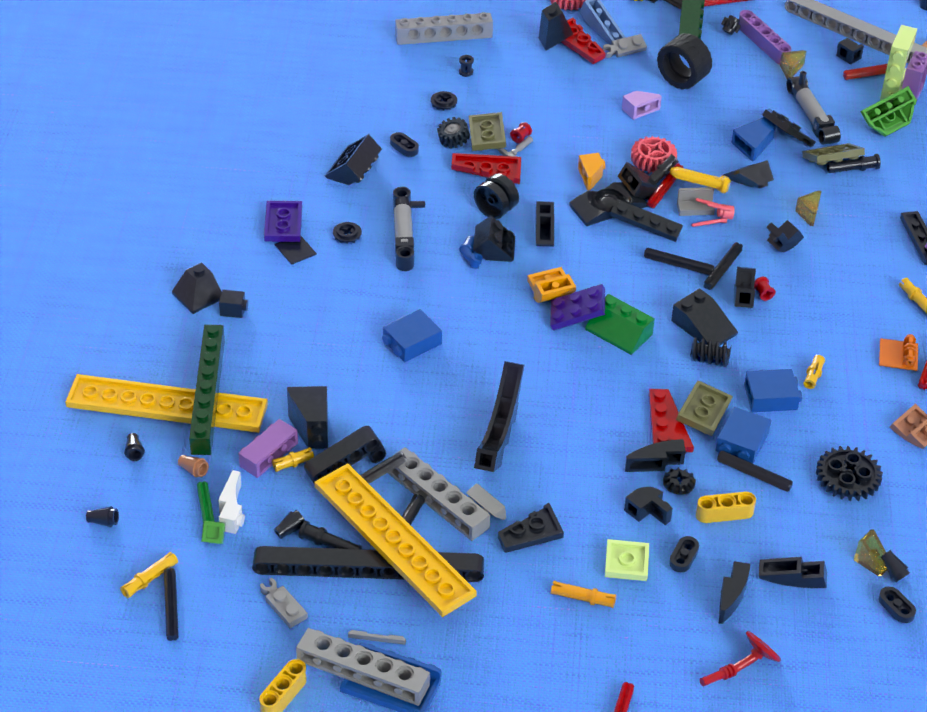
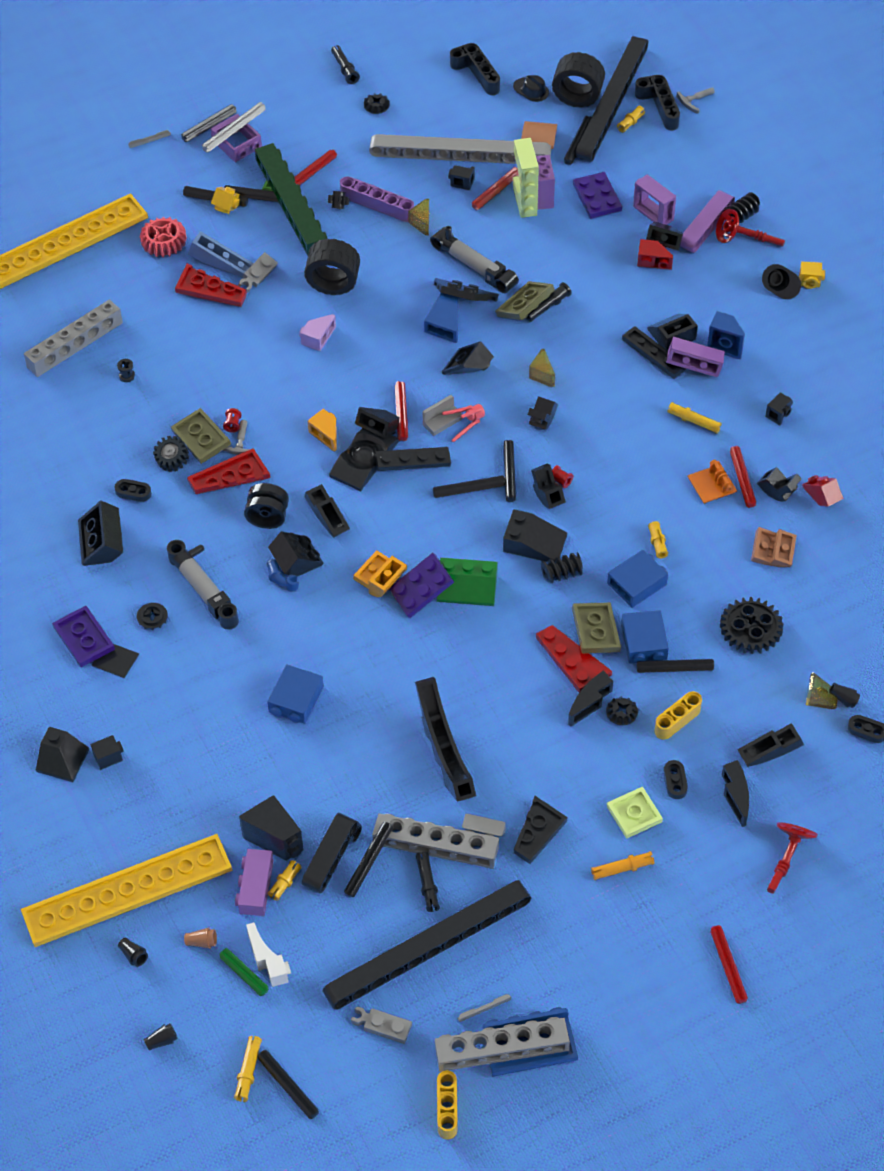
camera: 30 degrees left, 10 degrees up
(207, 390) = (161, 857): dark green brick -> none
(213, 532) = (272, 993): bright green tile -> none
(289, 524) = (332, 944): black cone -> none
(321, 536) = (368, 941): black pin -> none
(396, 540) = (439, 909): yellow plate -> none
(448, 101) = (131, 415): black gear -> none
(553, 27) = (183, 288): black slope -> none
(648, 501) = (613, 746): black brick -> none
(651, 152) = (380, 383): coral gear -> none
(663, 169) = (391, 395): black pin -> none
(721, 183) = (435, 390): yellow piece -> none
(891, 112) = (543, 229): bright green wedge -> none

